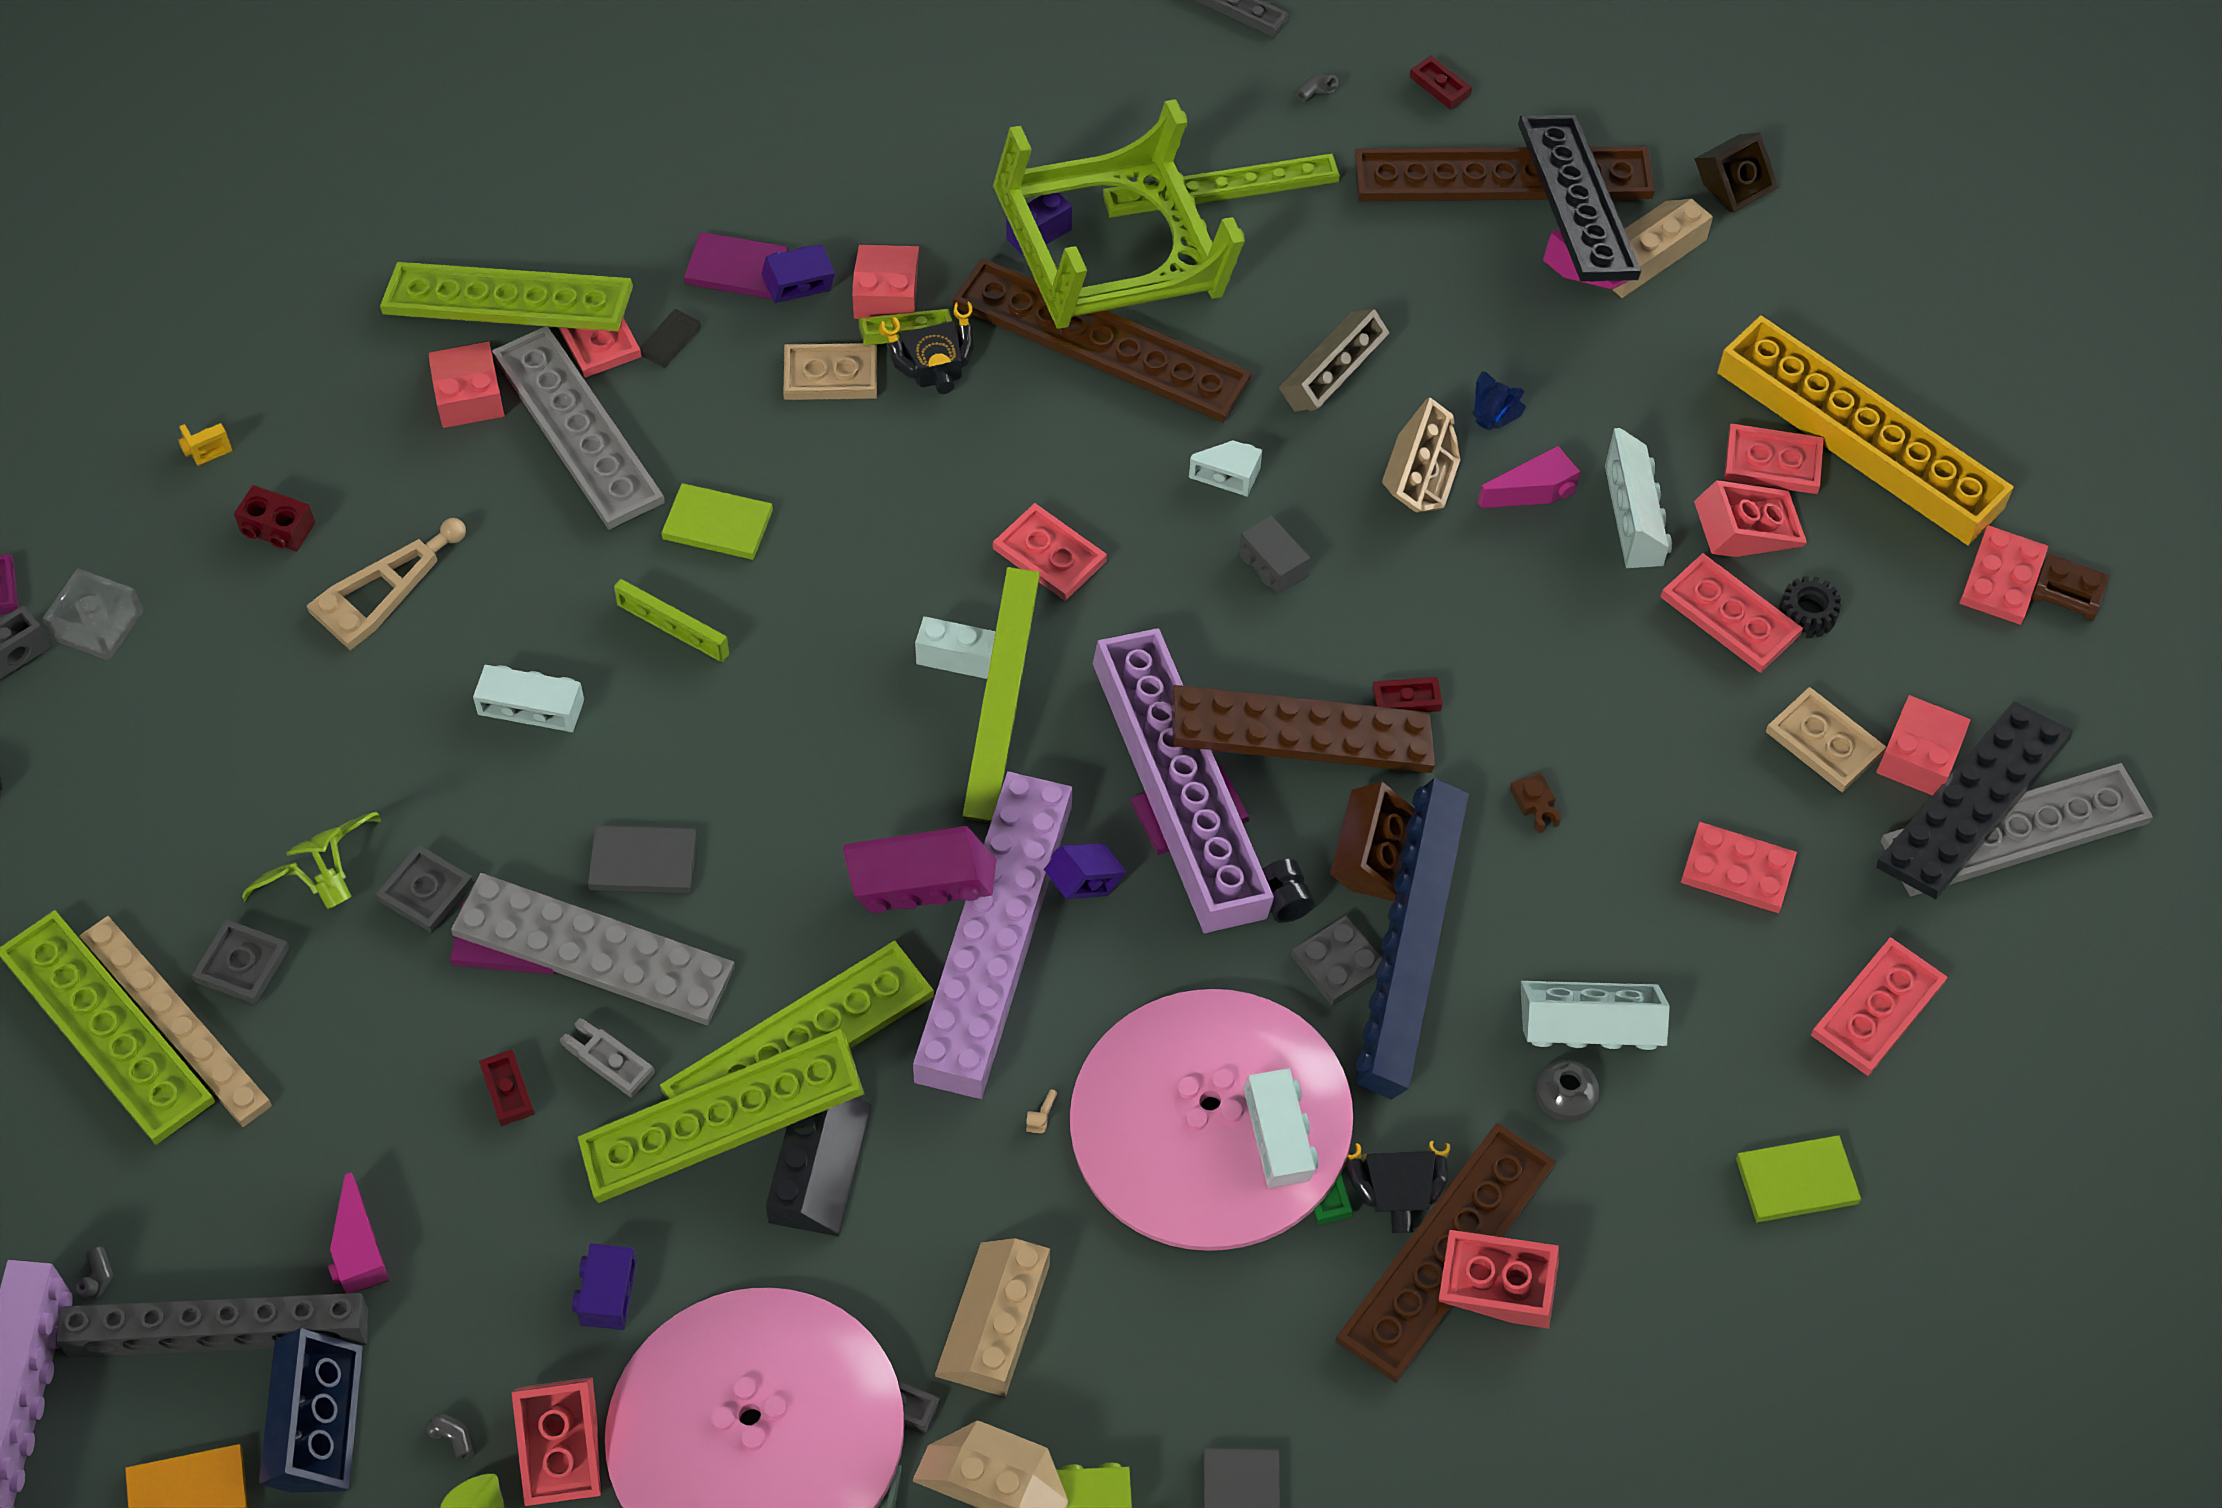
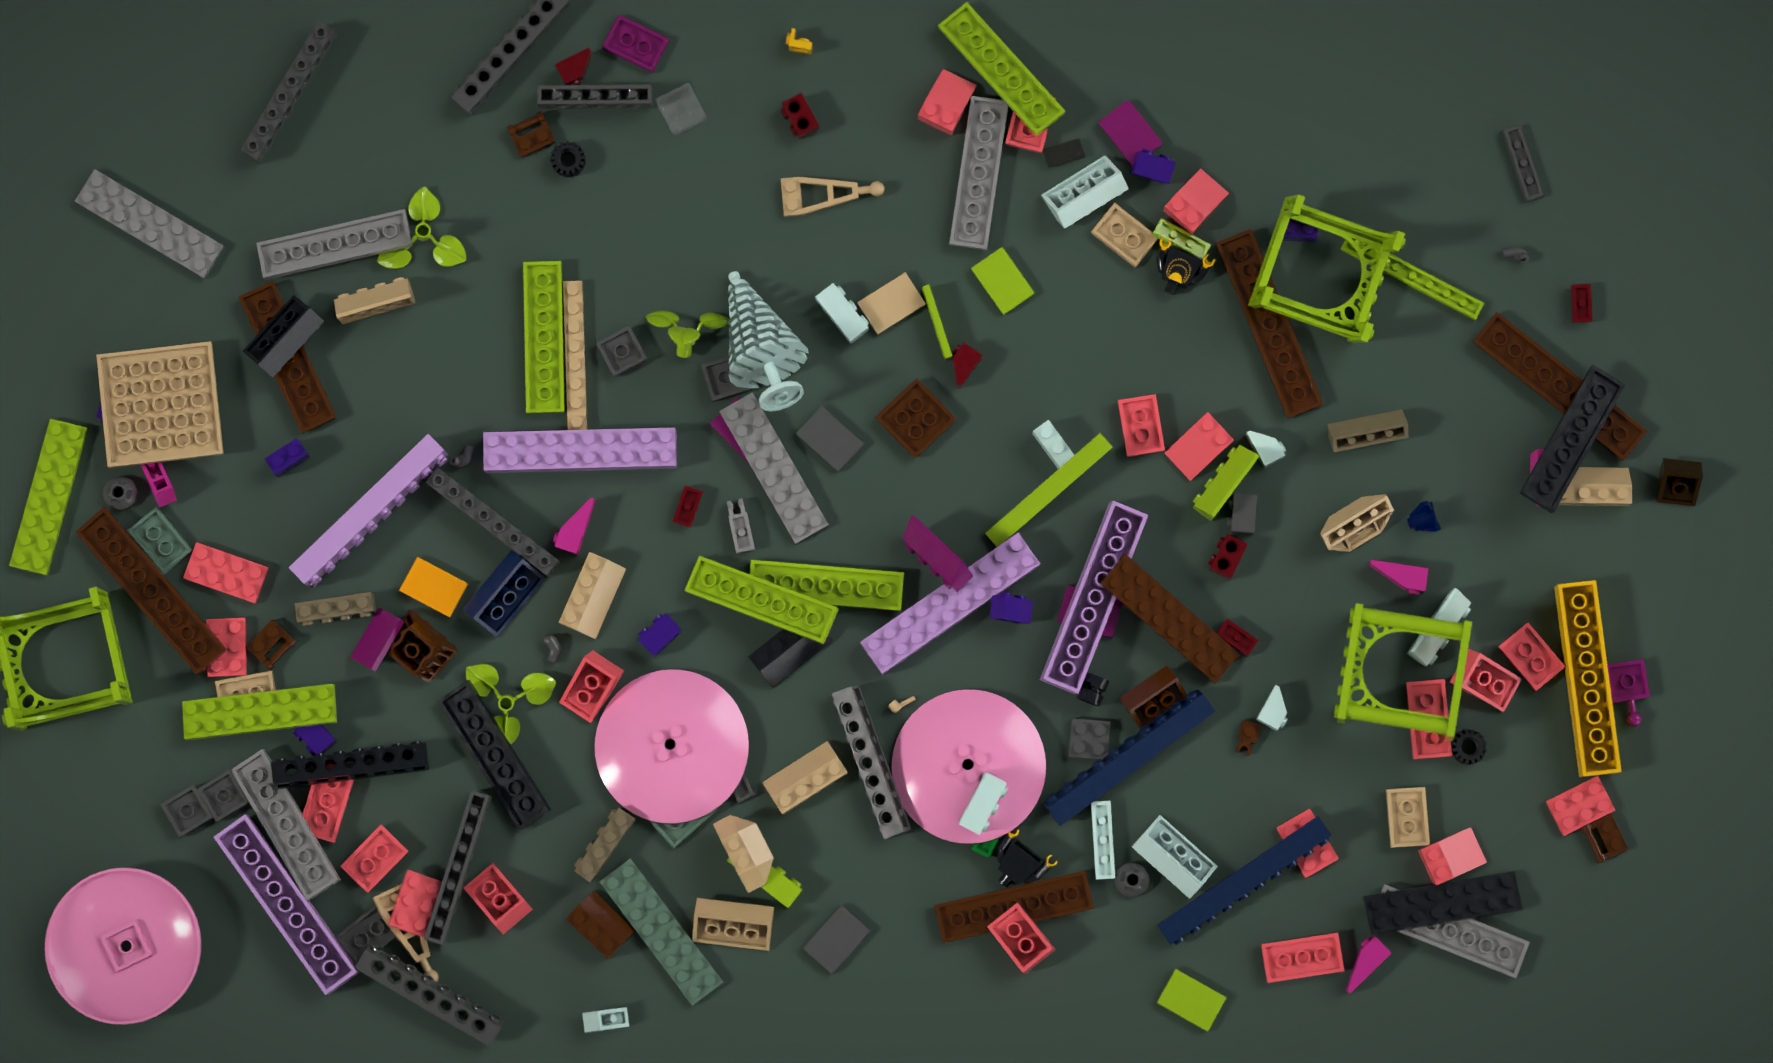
camera: 45 degrees right, 25 degrees up
(275, 1131) = (580, 450): none -> lavender brick
(442, 794) = (762, 348): none -> light aqua plant
(455, 1312) = (592, 595): none -> tan slope
(589, 643) = (891, 303): none -> tan tile
(736, 355) = (1085, 191): none -> light aqua slope
(742, 750) = (915, 418): none -> reddish brown plate
(750, 639) = (964, 362): none -> dark red slope
(953, 1163) = (879, 768): none -> dark grey brick
(1146, 520) = (1199, 446): none -> coral slope
(1218, 532) = (1225, 482): none -> lime slope
(1308, 613) = (1231, 558): none -> dark red brick
(1481, 1068) = (1103, 840): none -> light aqua plate
(1537, 742) = (1273, 711): none -> light aqua slope
(1636, 647) = (1385, 715): none -> lime arch
(1711, 969) = (1243, 880): none -> dark blue brick
(1923, 405) = (1628, 684): none -> magenta plate
(1961, 945) = (1367, 960): none -> dark pink slope

